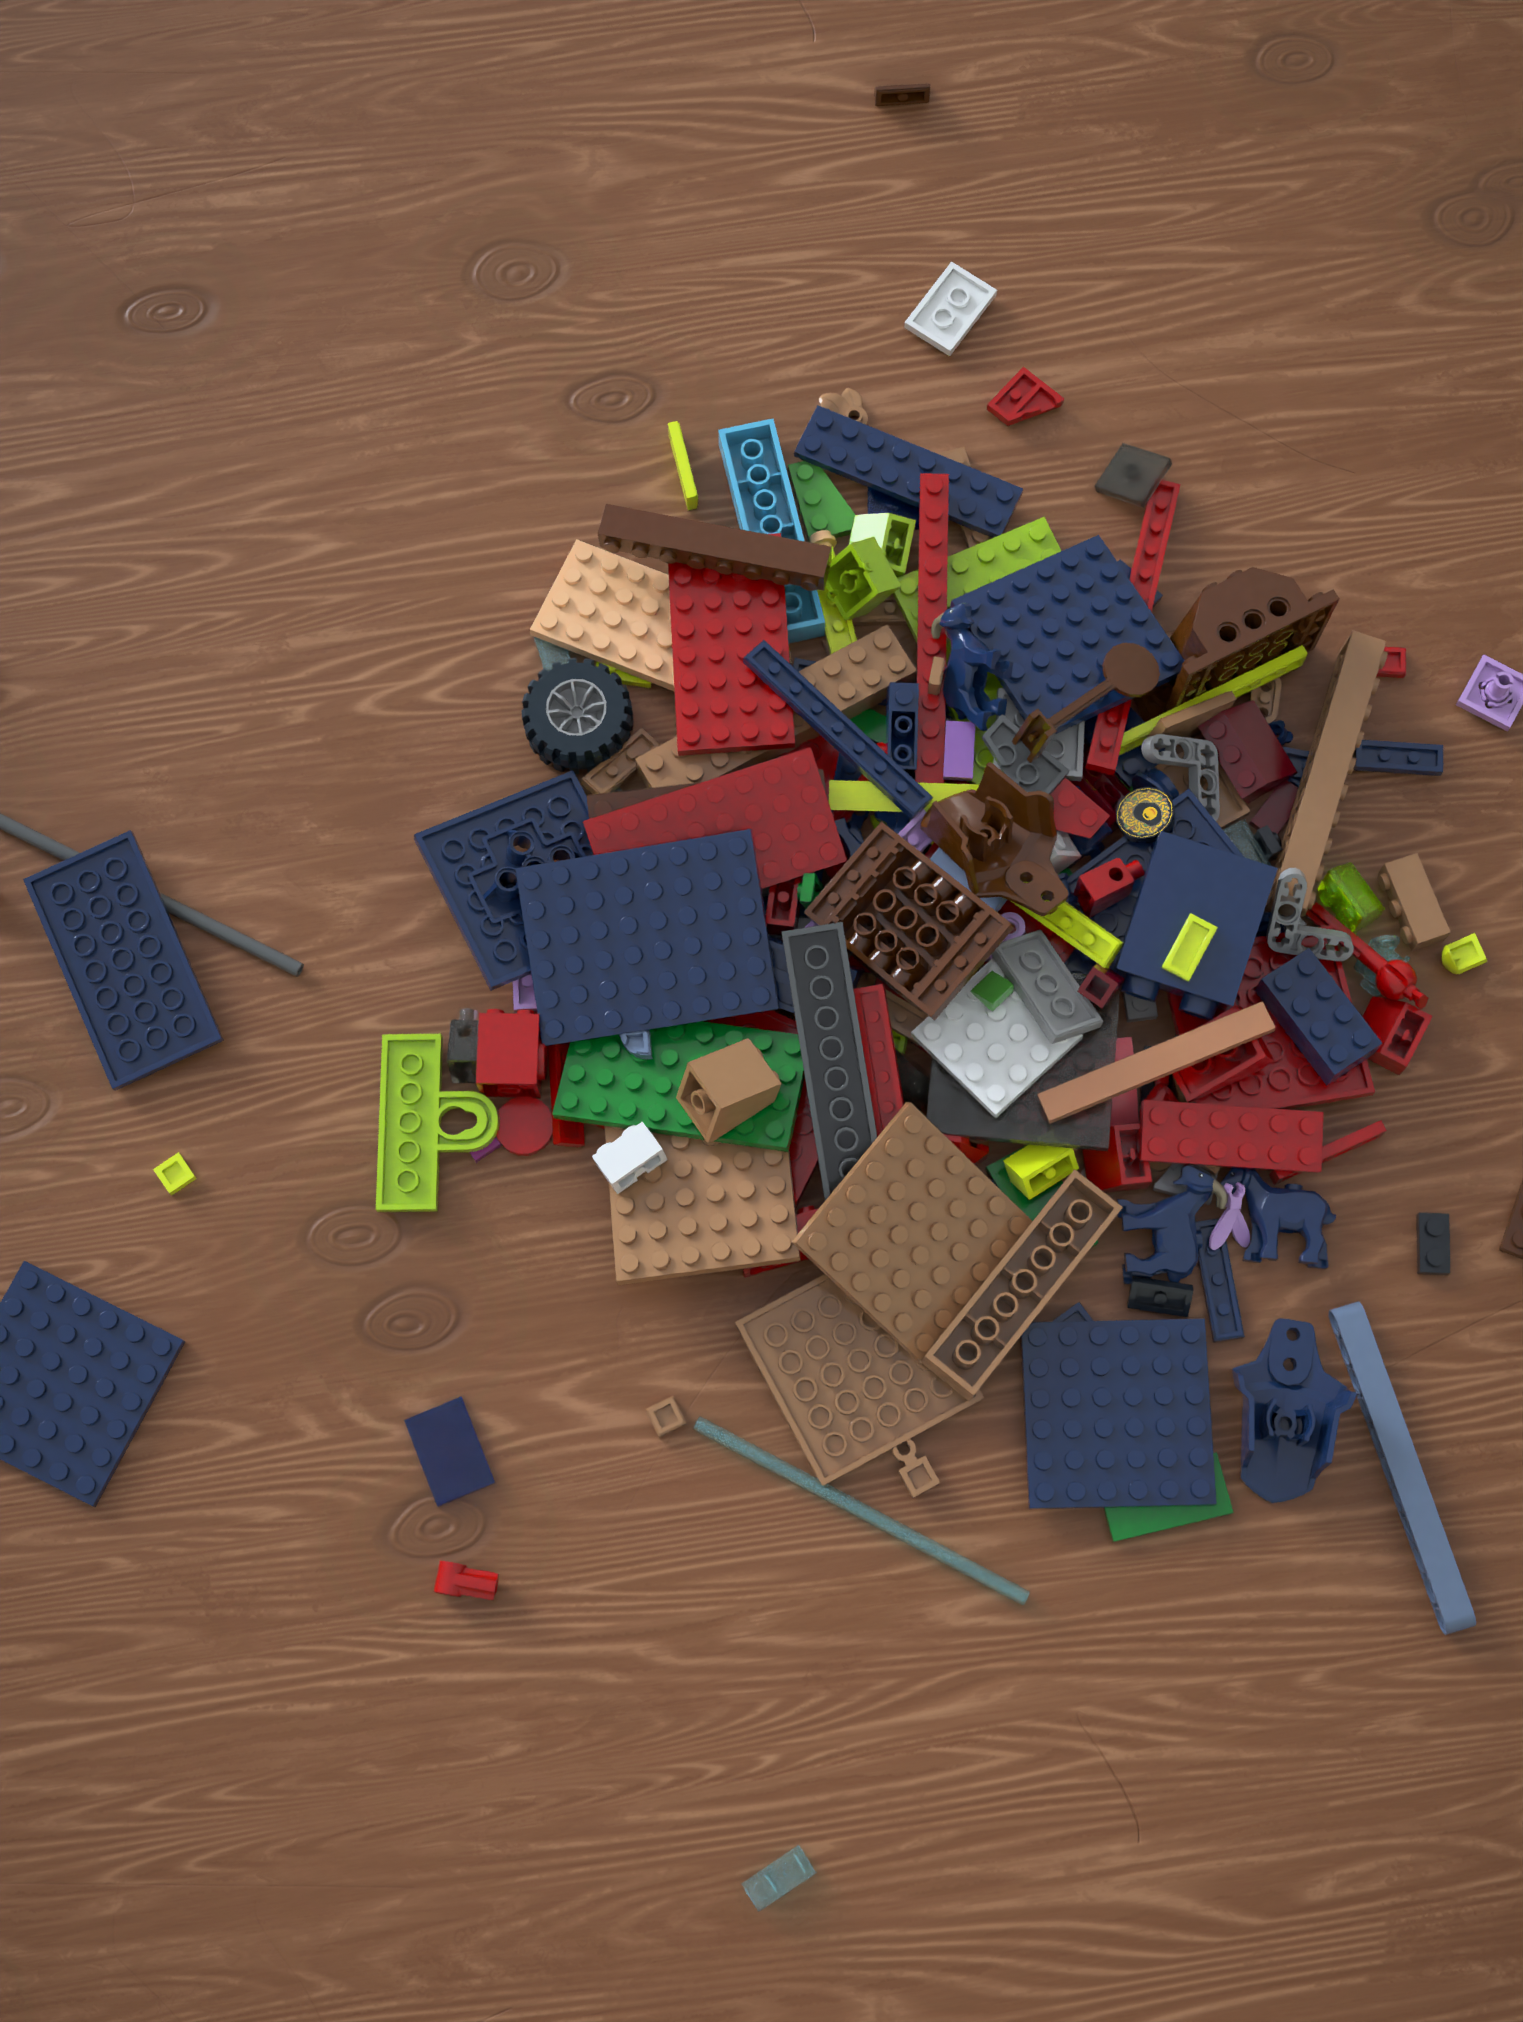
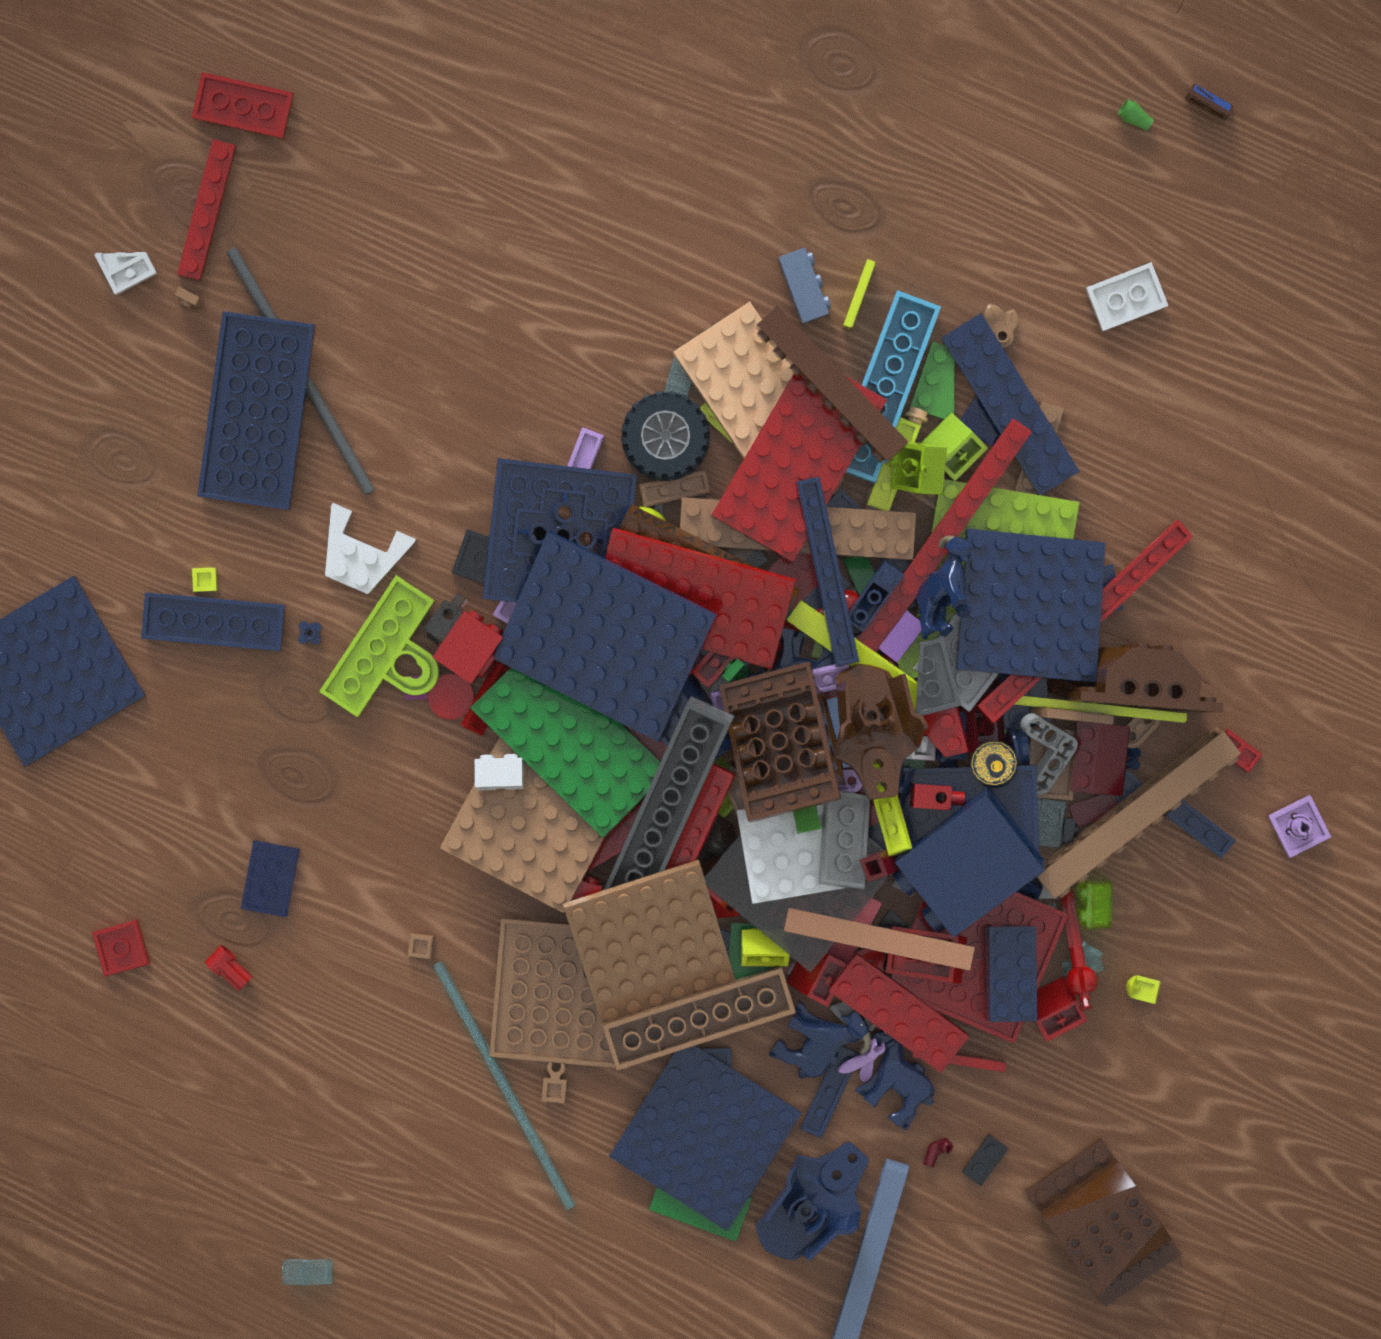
camera: 30 degrees right, 15 degrees up
(211, 1211) = (213, 621): none -> dark blue plate
(327, 1642) = (121, 948): none -> red tile
(334, 1050) = (355, 561): none -> white wing
(335, 1158) = (314, 637): none -> dark blue plate
(455, 967) = (472, 557): none -> black tile
(501, 779) = (586, 449): none -> lavender tile
(614, 485) = (804, 286): none -> sand blue brick
(638, 1043) = (555, 700): sand blue tile -> none
(727, 1088) = (589, 774): medium nougat slope -> none
(838, 145) = (1135, 115): none -> bright green cone
(936, 676) = (920, 576): medium nougat tile -> none
(1023, 398) = (1130, 399): red wing -> none
(1127, 670) = (1049, 662): reddish brown piece -> none
(1133, 475) = (1165, 508): clear smoke plate -> none
(1160, 1296) = (784, 1078): black plate -> none
(1189, 947) = (950, 882): neon yellow tile -> none
(1293, 931) = (1037, 907): light grey beam -> none
(1374, 1265) = (936, 1148): none -> dark red arm
(1413, 902) = (1135, 933): medium nougat brick -> none

